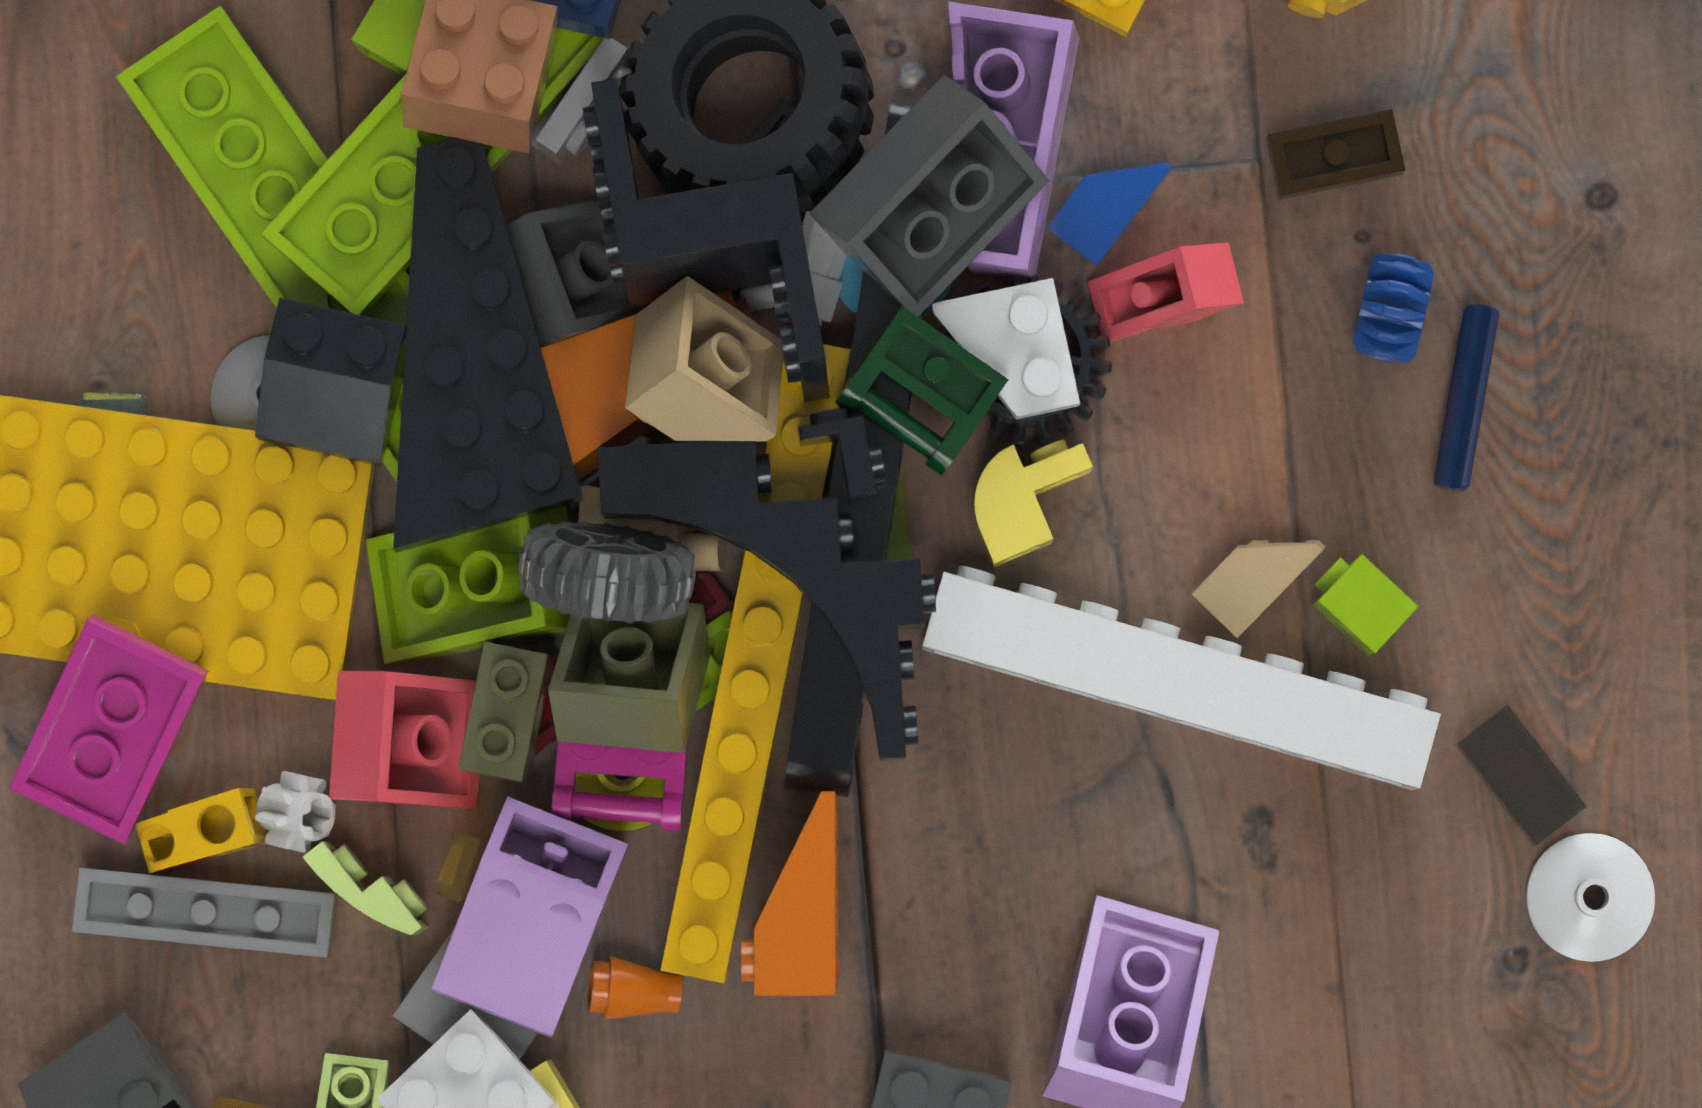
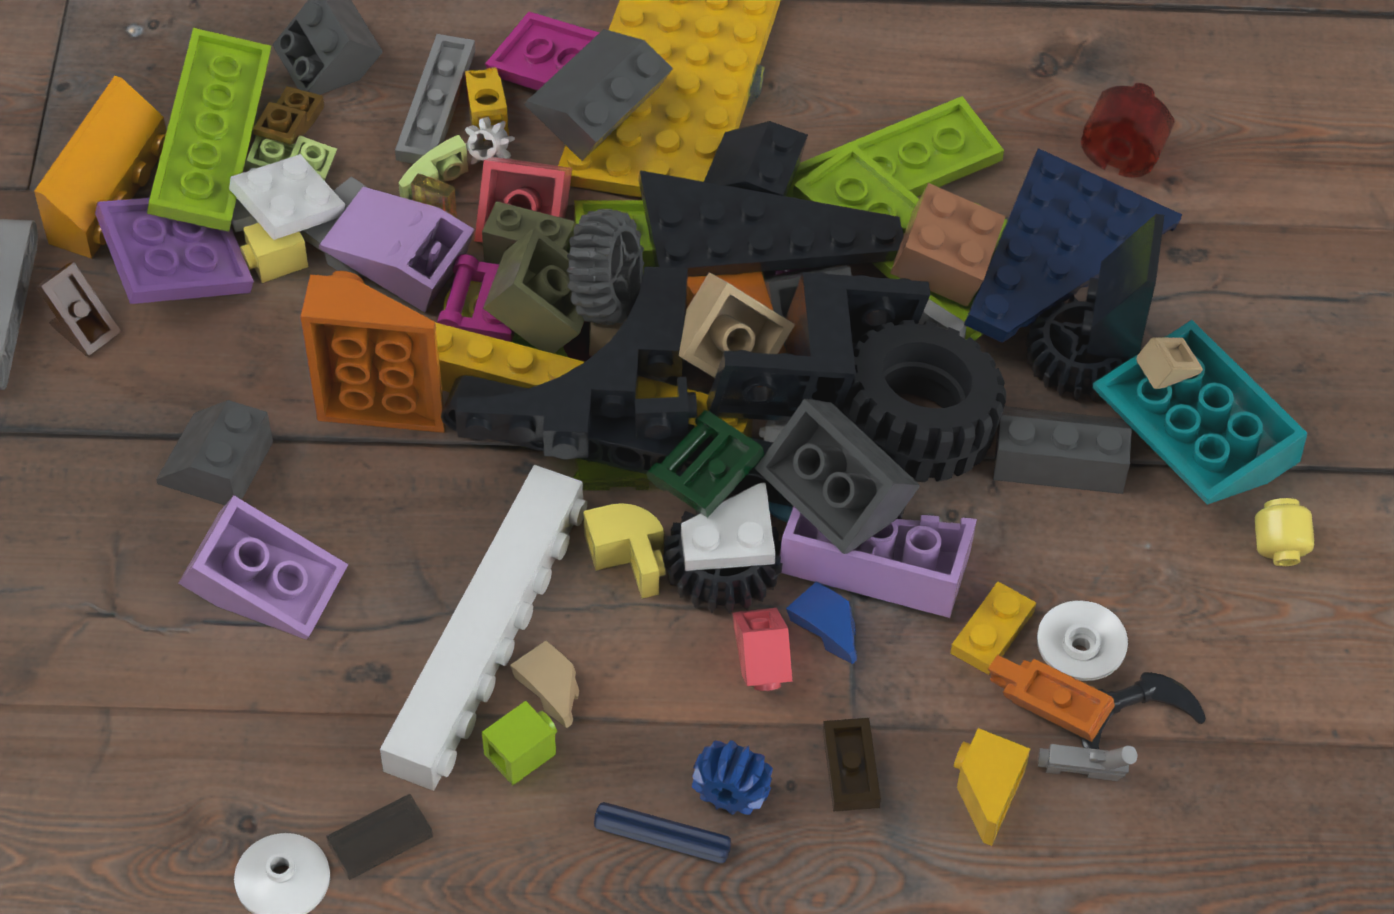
camera: 90 degrees right, 30 degrees down
(207, 639) = (598, 90): none -> dark grey slope

